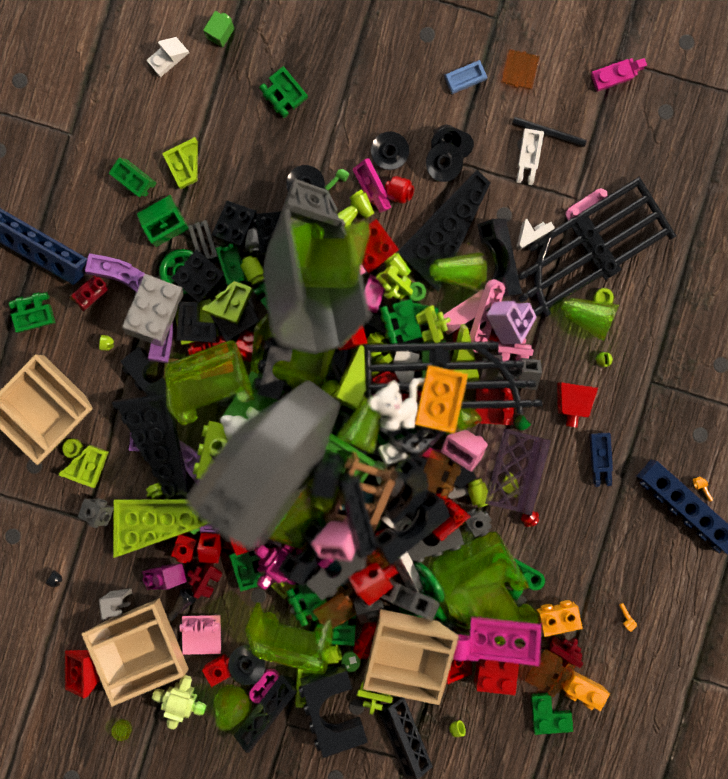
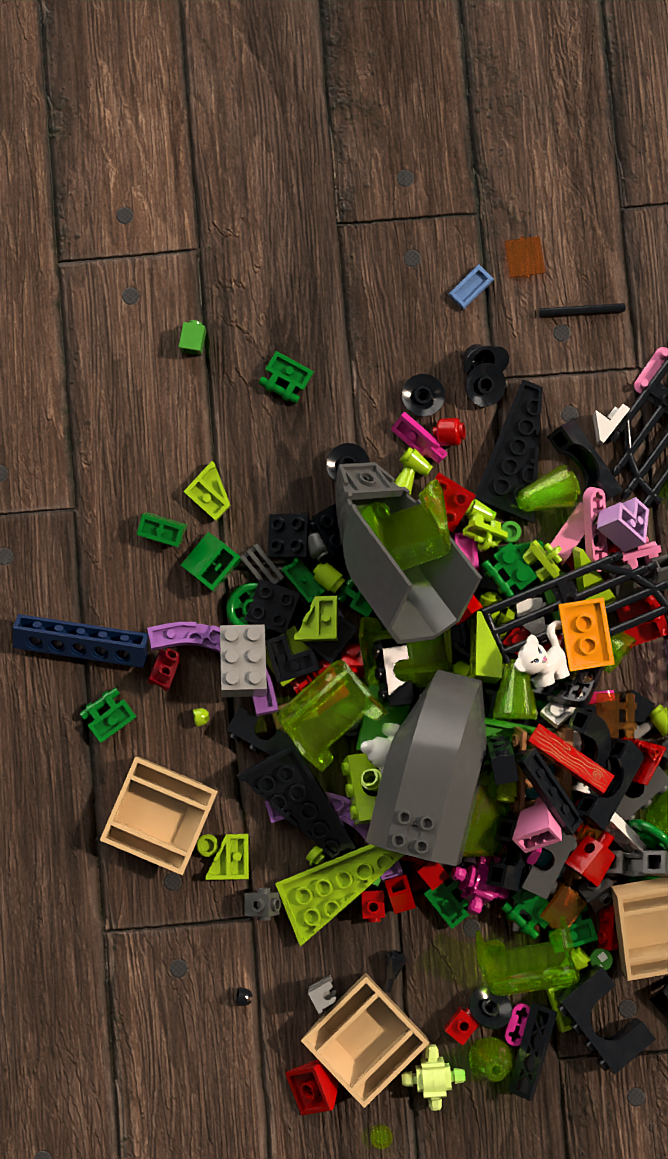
camera: 25 degrees left, 5 degrees down
(164, 577) = (362, 946): magenta slope -> none
(167, 56) = (148, 387): white slope -> none
(200, 578) = (403, 932): dark red hips -> none
(201, 634) = (427, 994): bright pink hinge -> none
(281, 587) = (494, 907): lime tile -> none
(341, 174) = (382, 439): bright green hand -> none
(374, 697) = (632, 987): lime hips -> none
(386, 496) = (570, 759): none -> red tile
(465, 448) = (630, 678): bright pink torso -> none
(529, 154) = (571, 341): white hinge -> none
(617, 73) = (627, 222): dark pink hinge -> none

